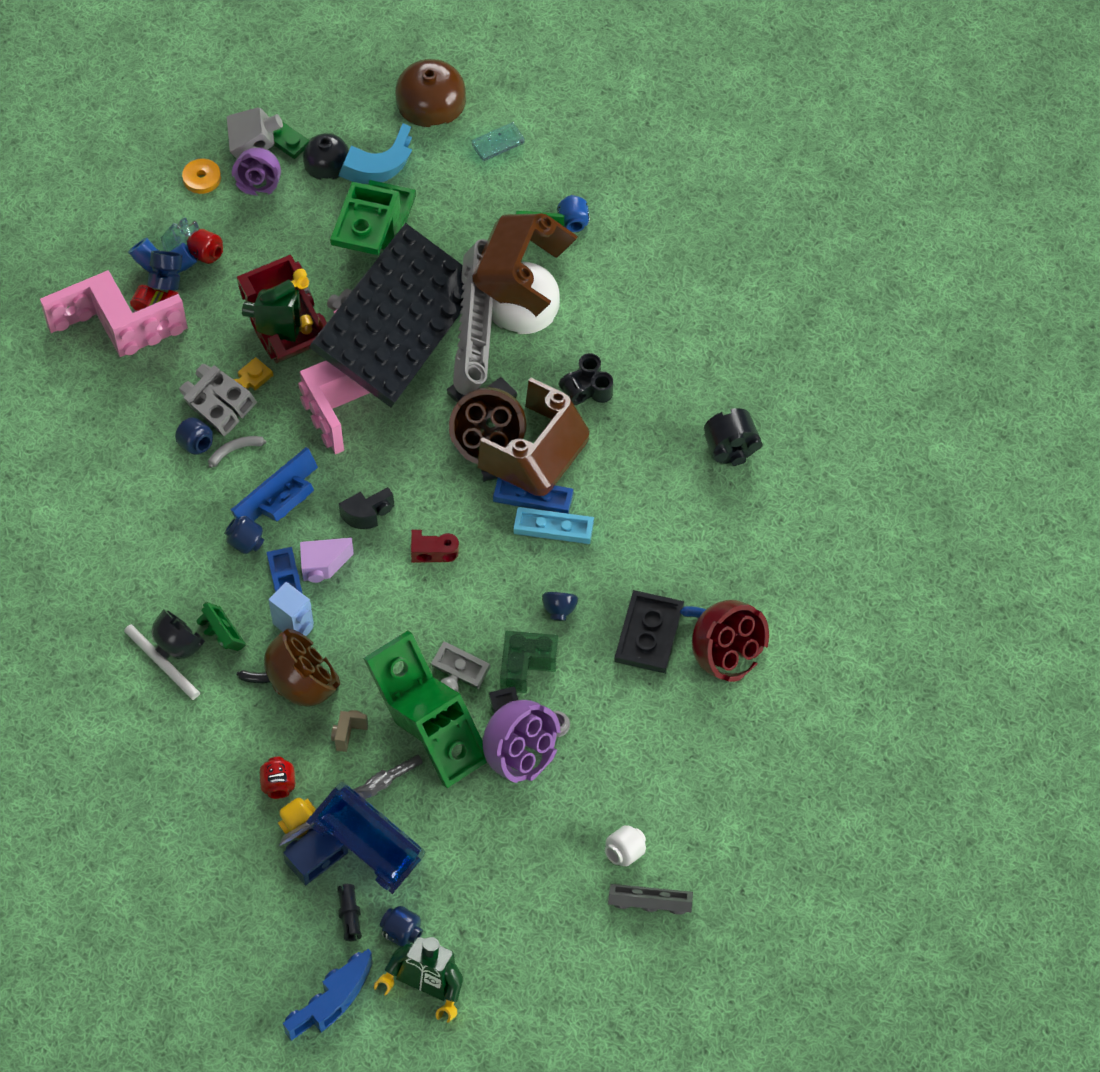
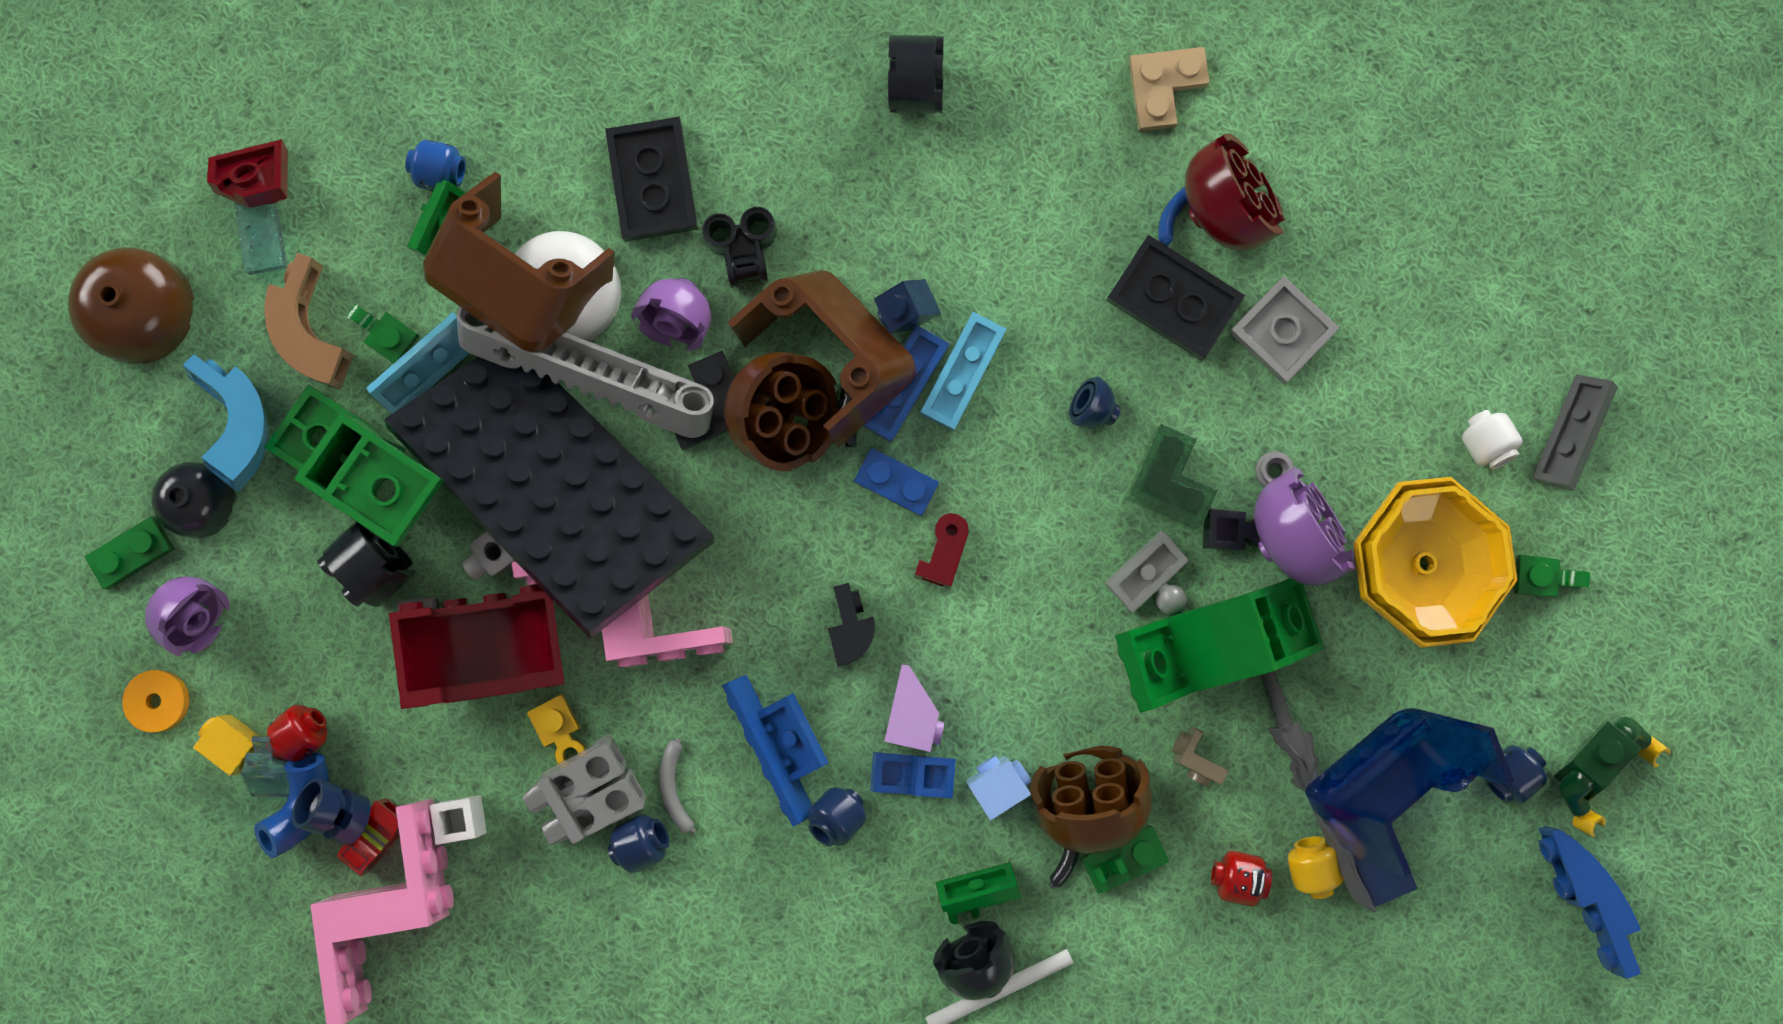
camera: 70 degrees left, 25 degrees up
(179, 337) = (458, 819): none -> white brick
(188, 208) = (225, 743): none -> yellow brick
(251, 130) = (107, 602): light grey torso -> none
(268, 709) = (1127, 862): none -> green plate
(279, 309) = (485, 657): dark green torso -> none
(314, 248) = (366, 566): none -> black brick
(349, 912) = (1473, 837): black pin -> none
(445, 172) = (290, 329): none -> medium nougat arch
(446, 239) = (419, 366): none -> medium azure plate
(461, 221) = (386, 335): none -> green plate
(468, 511) = (896, 482): none -> blue plate
(530, 125) = (251, 174): none -> dark red plate
(532, 799) = (1466, 557): none -> yellow rock
(533, 354) = (668, 307): none -> medium lavender cylinder
(544, 909) = (1543, 576): none -> green plate
(582, 477) = (906, 305): none -> dark blue brick
(610, 324) = (651, 179): none -> black plate
(652, 701) = (1284, 330): none -> light grey plate
(794, 581) = (1157, 76): none -> tan plate

